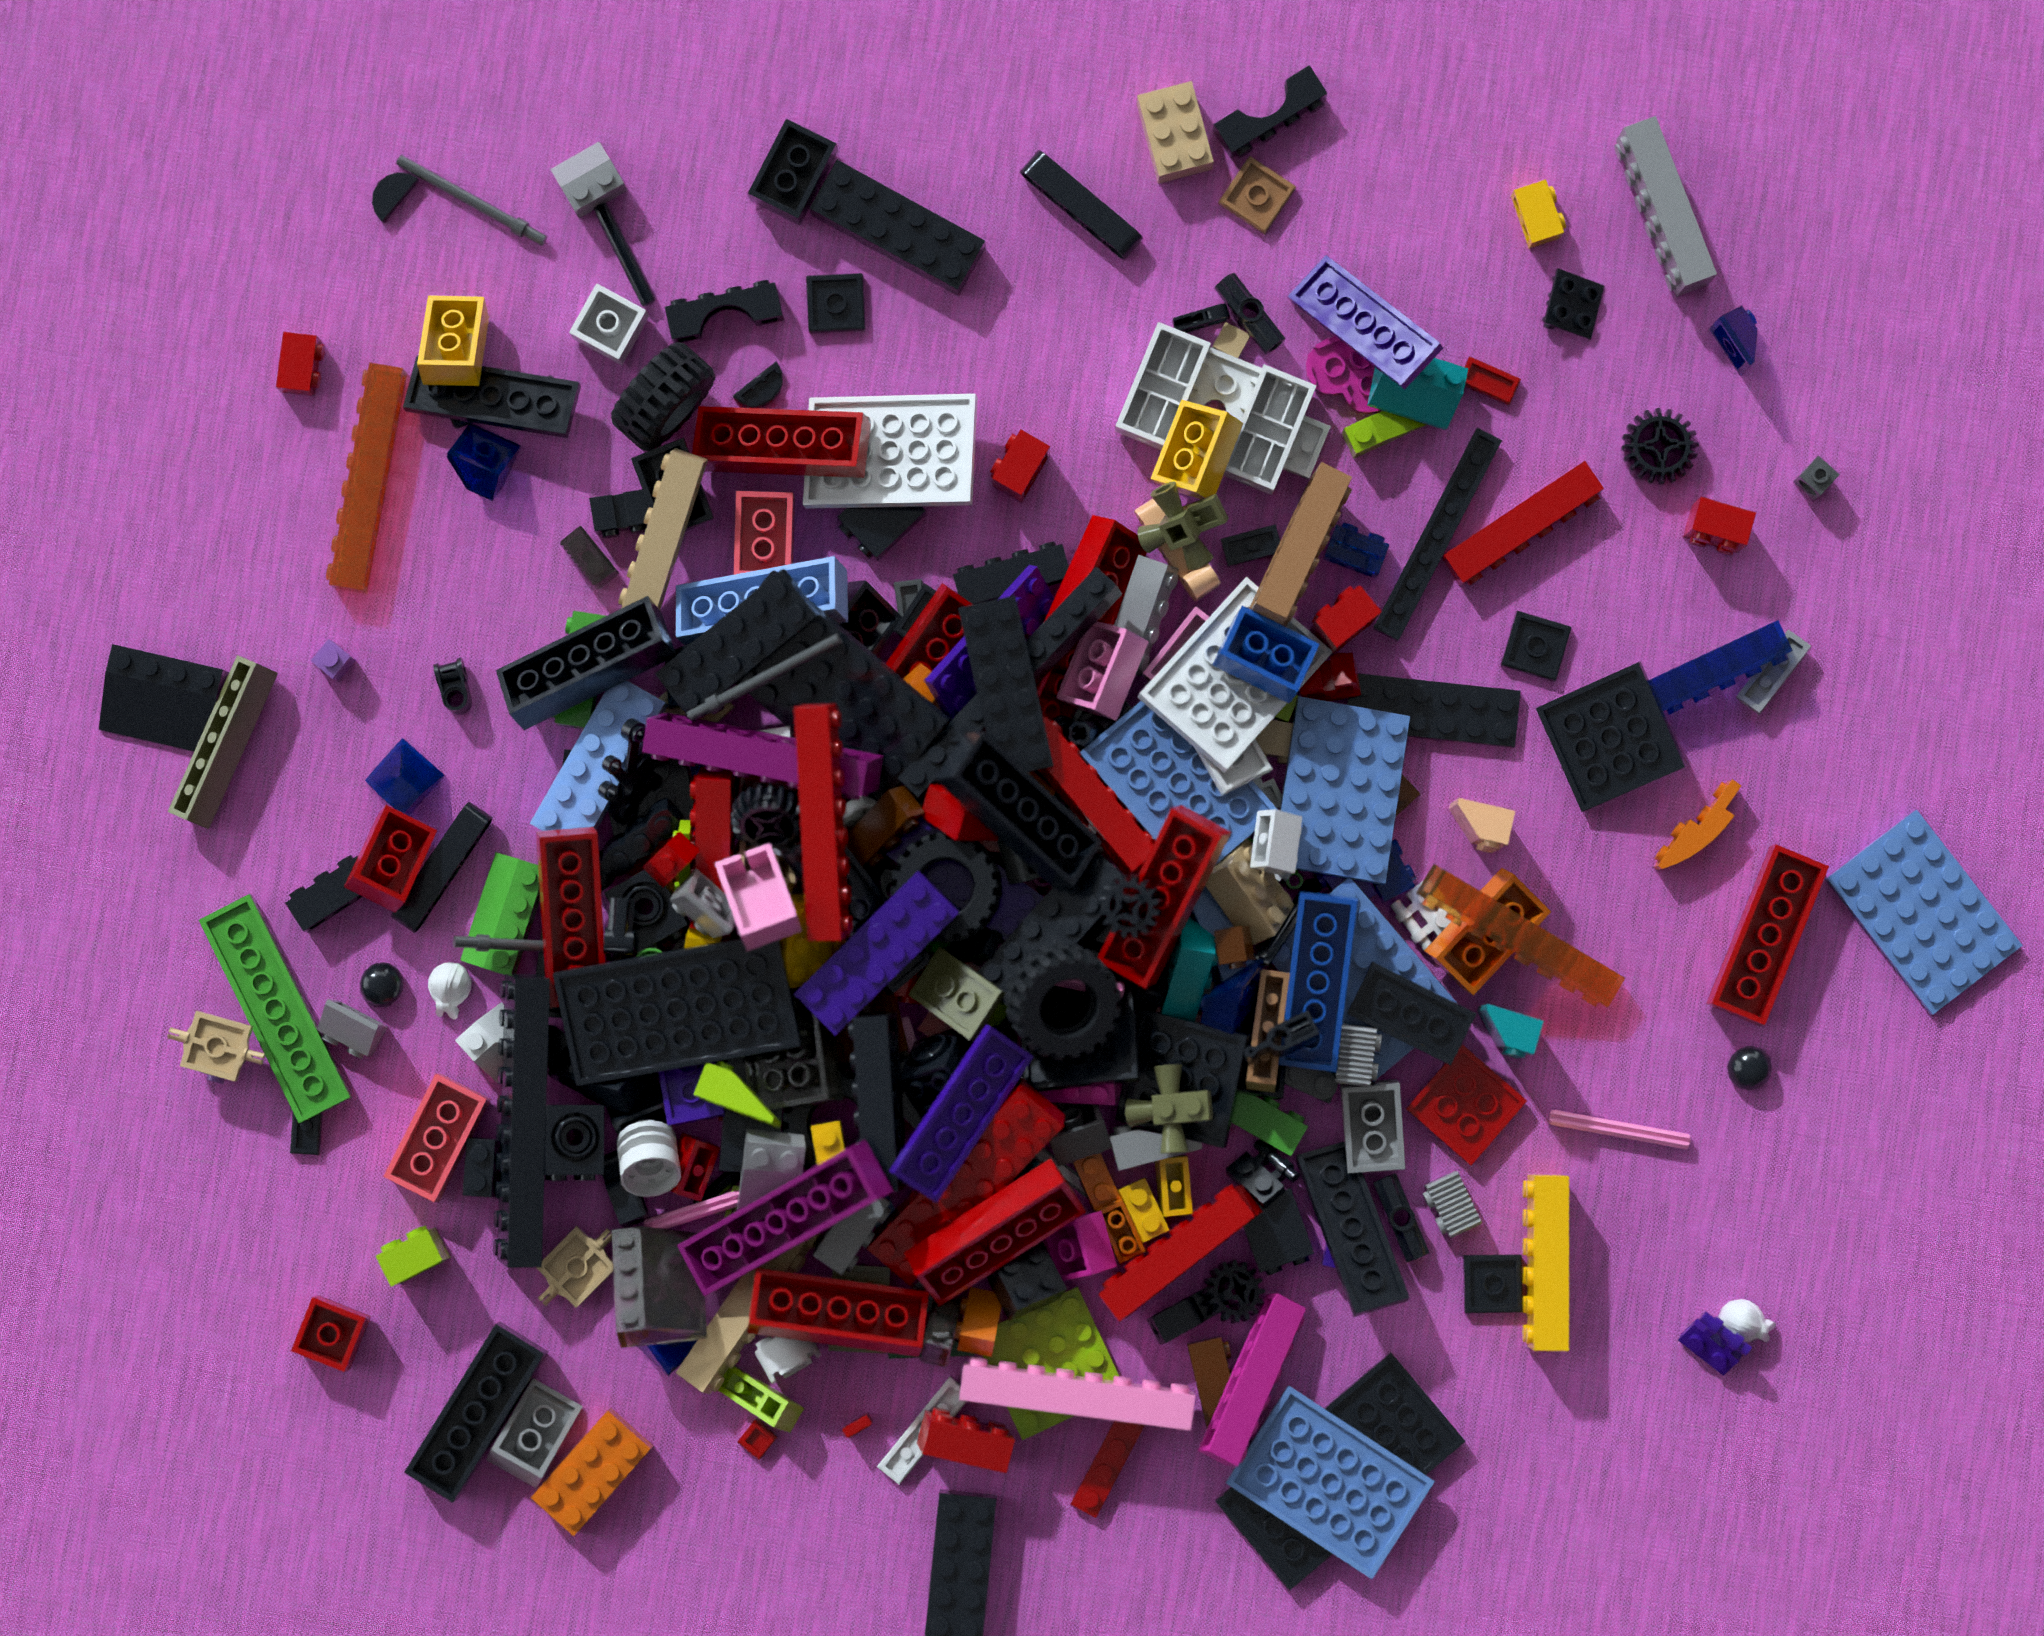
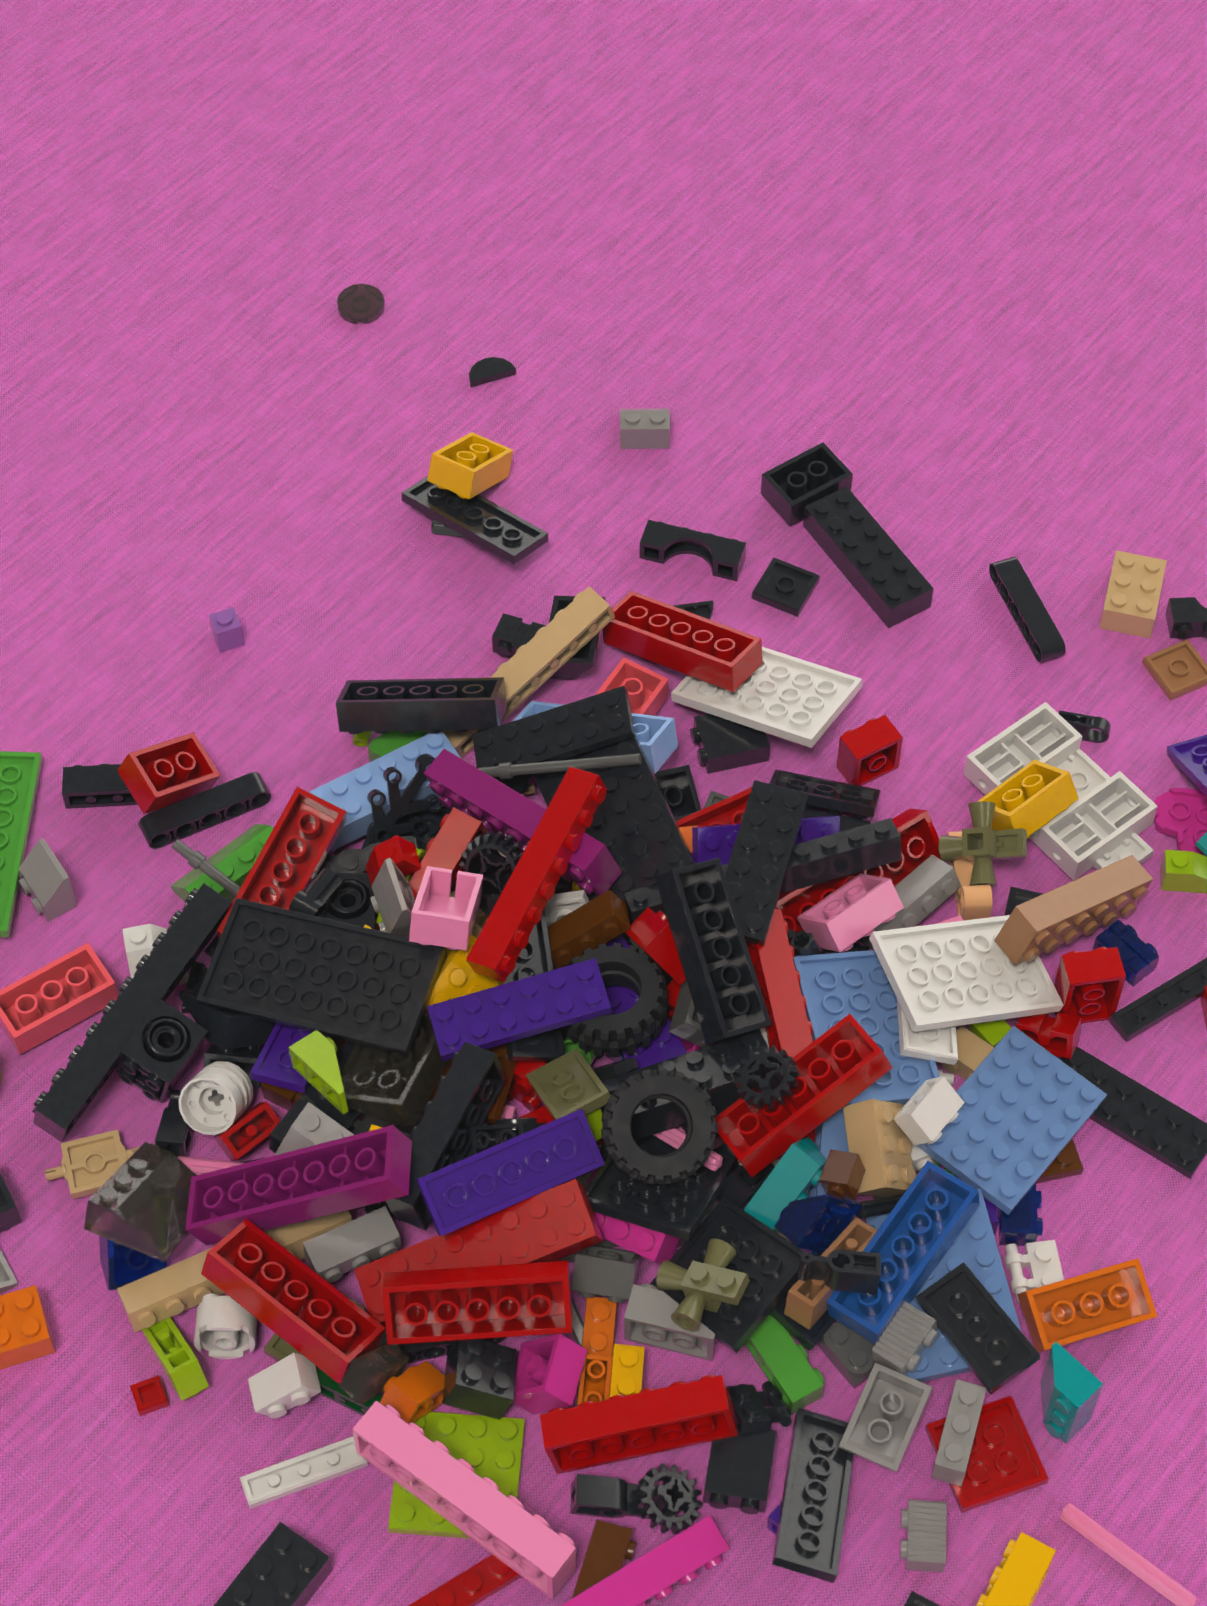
camera: 25 degrees right, 30 degrees down
(158, 697) = (79, 594): black slope -> none
(205, 178) = (360, 303): none -> clear smoke tile
(222, 742) = (100, 640): brick -> none
(299, 363) = (344, 436): red brick -> none
(367, 478) = (339, 530): clear orange brick -> none
(381, 984) = (94, 870): black hair -> none
(404, 777) = (224, 738): clear blue slope -> none
(449, 987) = (146, 896): white piece -> none
(453, 680) = (306, 693): black piece -> none
(480, 1167) = (67, 1037): black brick -> none
(482, 460) = (437, 558): clear blue slope -> none
(518, 226) = (570, 430): dark grey bar -> none
(589, 558) = (474, 652): clear smoke brick -> none
(609, 324) = (597, 513): white brick -> none
(624, 254) = (639, 483): black axle -> none
(662, 396) = (609, 558): black tyre -> none
(857, 1425) = (246, 1429): red tile -> none
(868, 1377) = (284, 1385): none -> white brick
(965, 1440) = (335, 1486): red brick -> none
(1001, 533) = (831, 794): none -> black plate
(1173, 1186) = (669, 1363): yellow brick -> none
(1231, 340) = (1102, 755): tan tile -> none
(1260, 327) = (1127, 741): black piece -> none
(1265, 654) = (1002, 960): blue brick -> none
(1407, 1235) = (868, 1537): black piece -> none
(1439, 1108) = (958, 1432): none -> light grey brick
(1483, 824) = (1131, 1206): light nougat slope -> none
(1520, 935) = (1118, 1315): clear orange brick -> none

